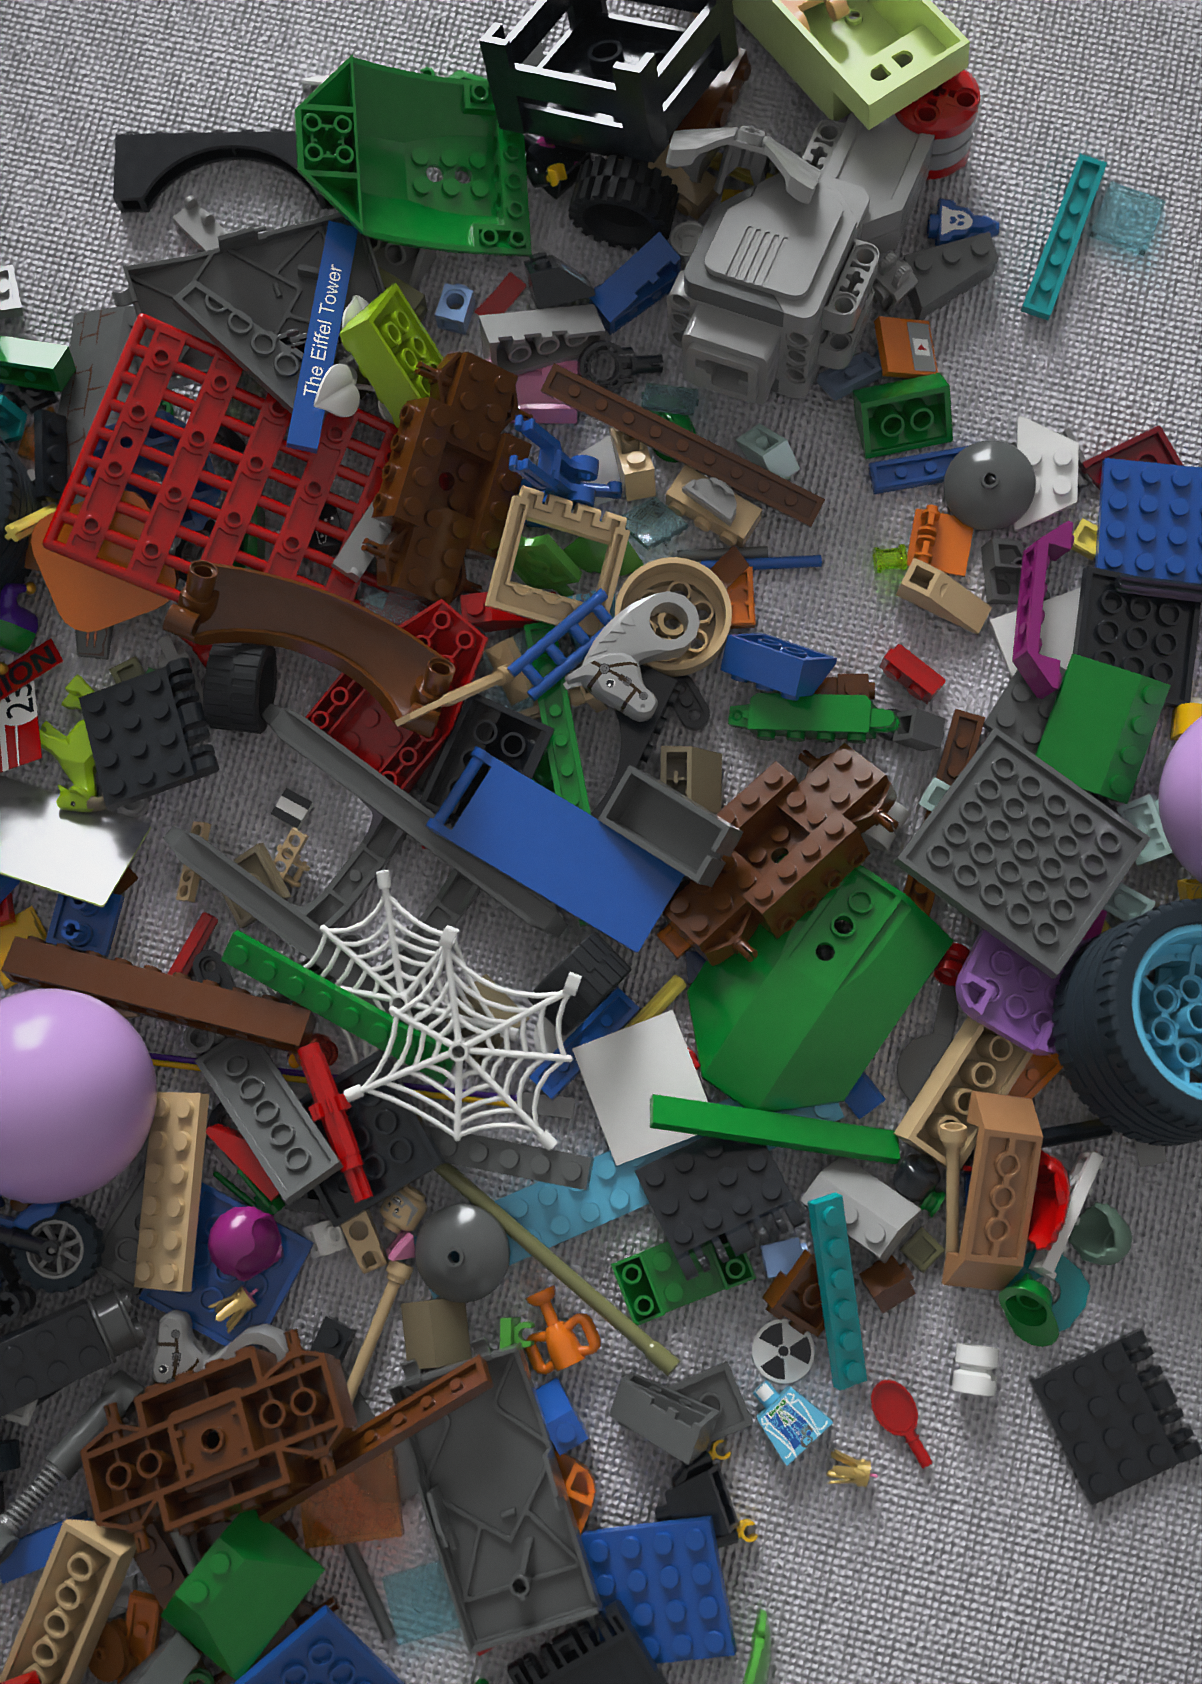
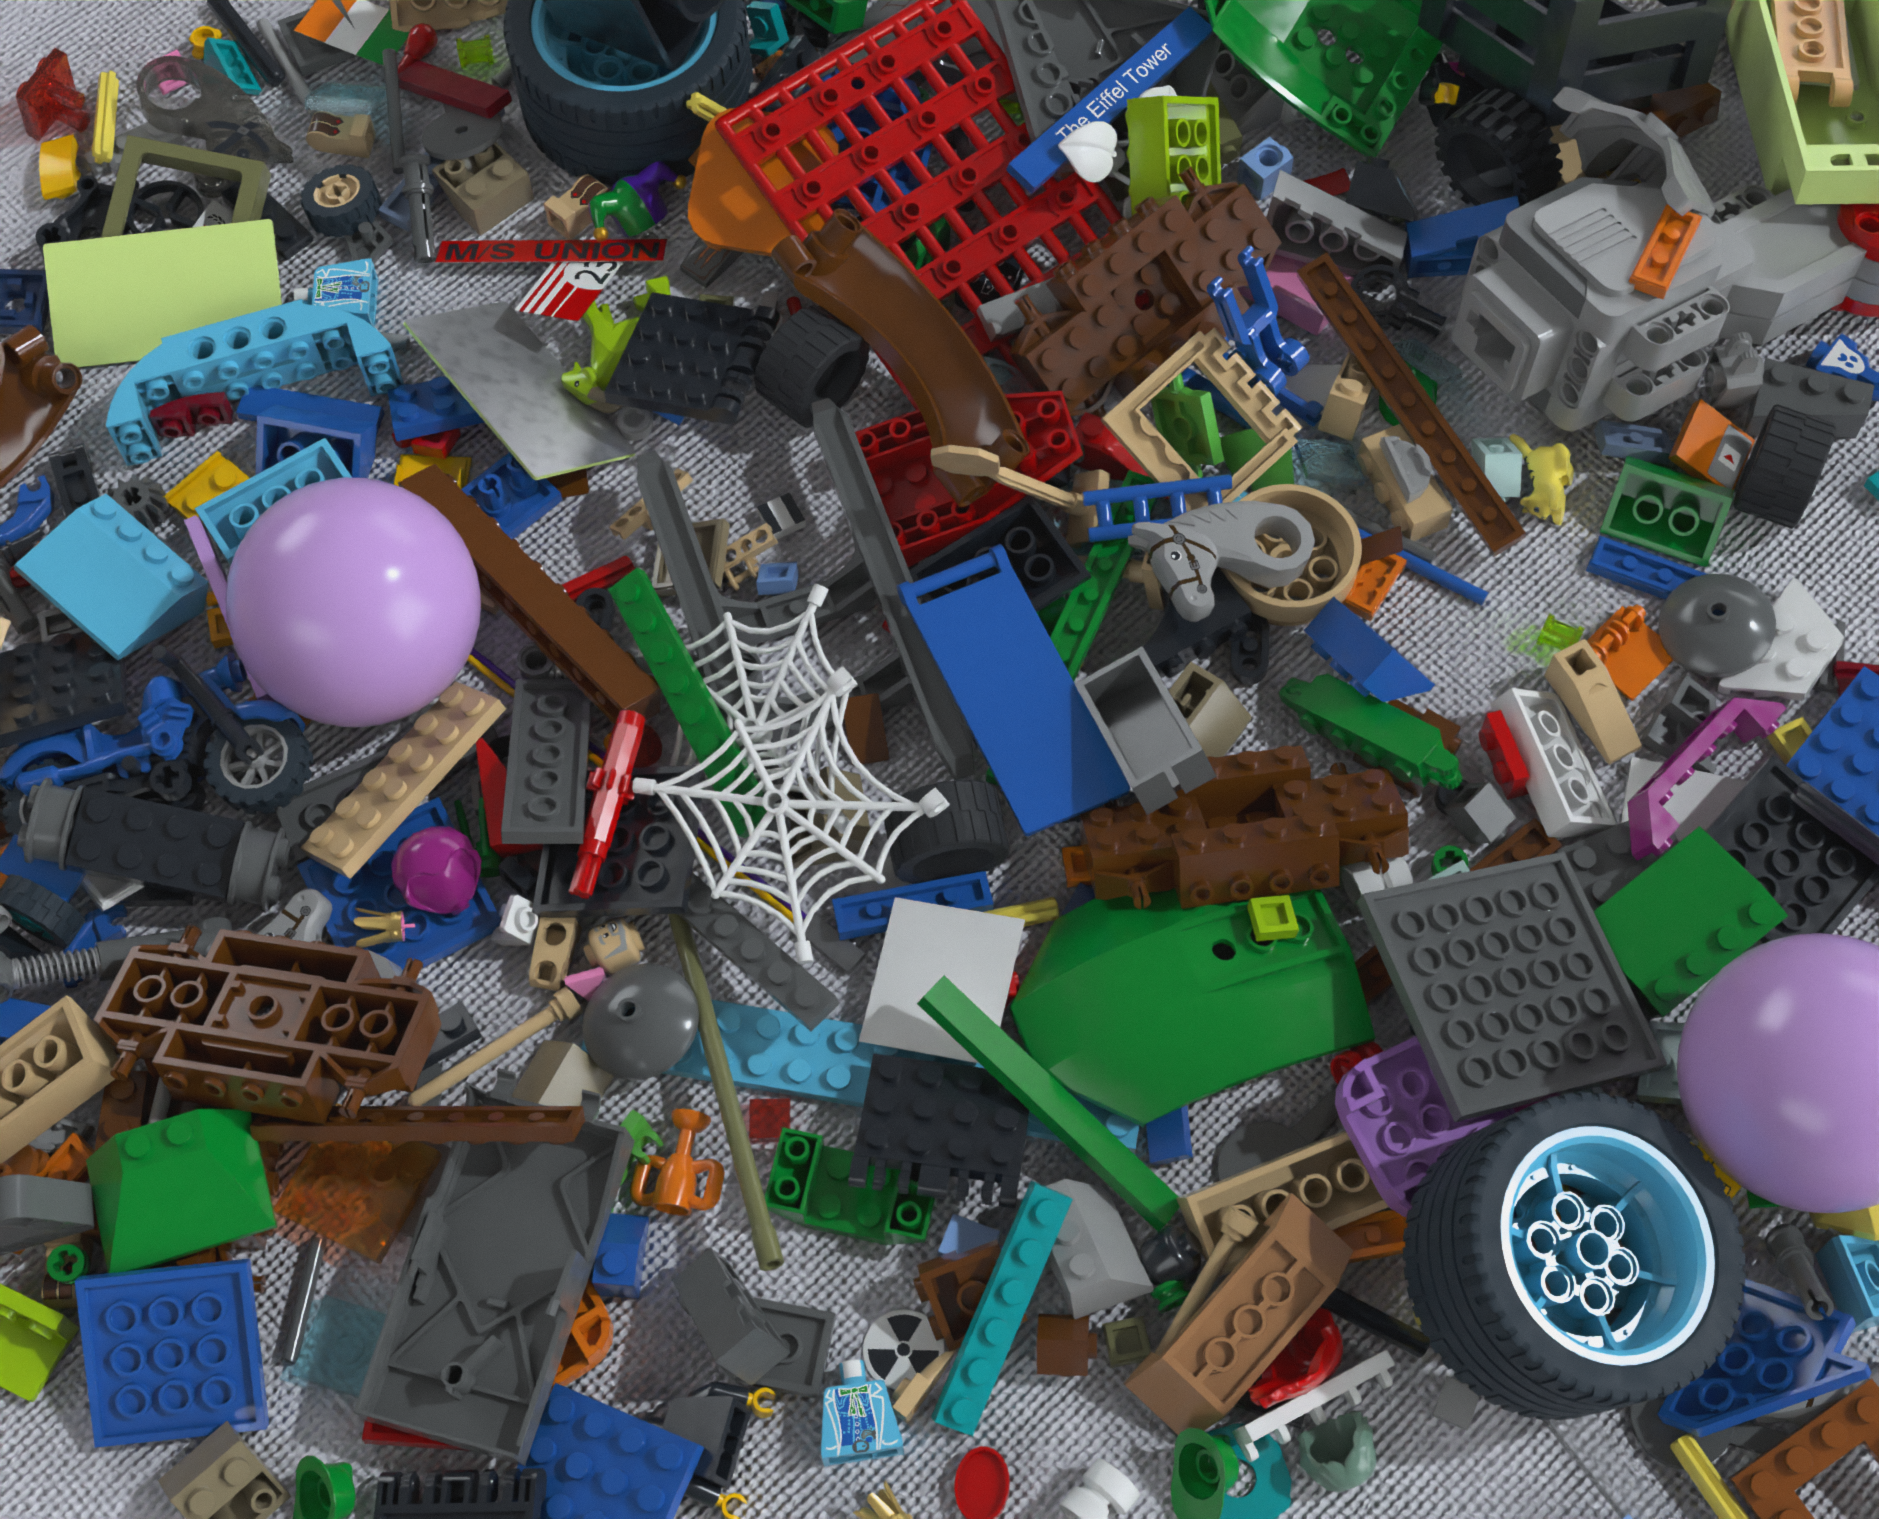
camera: 30 degrees right, 15 degrees down
(30, 1443) = (96, 929): none -> blue piece
(324, 860) = (777, 578): none -> medium blue plate
(470, 938) = (866, 728): none -> reddish brown sticker
(591, 1256) = (768, 1118): none -> clear red tile
(807, 436) = (1549, 473): none -> light yellow animal
(812, 1380) = (912, 1393): none -> tan plate
(815, 239) = (1664, 252): none -> orange tile
(843, 908) = (1272, 918): none -> lime tile
(918, 788) = (1450, 852): none -> green bush
(950, 662) = (1559, 771): none -> white slope
(968, 337) = (1784, 466): none -> black tyre

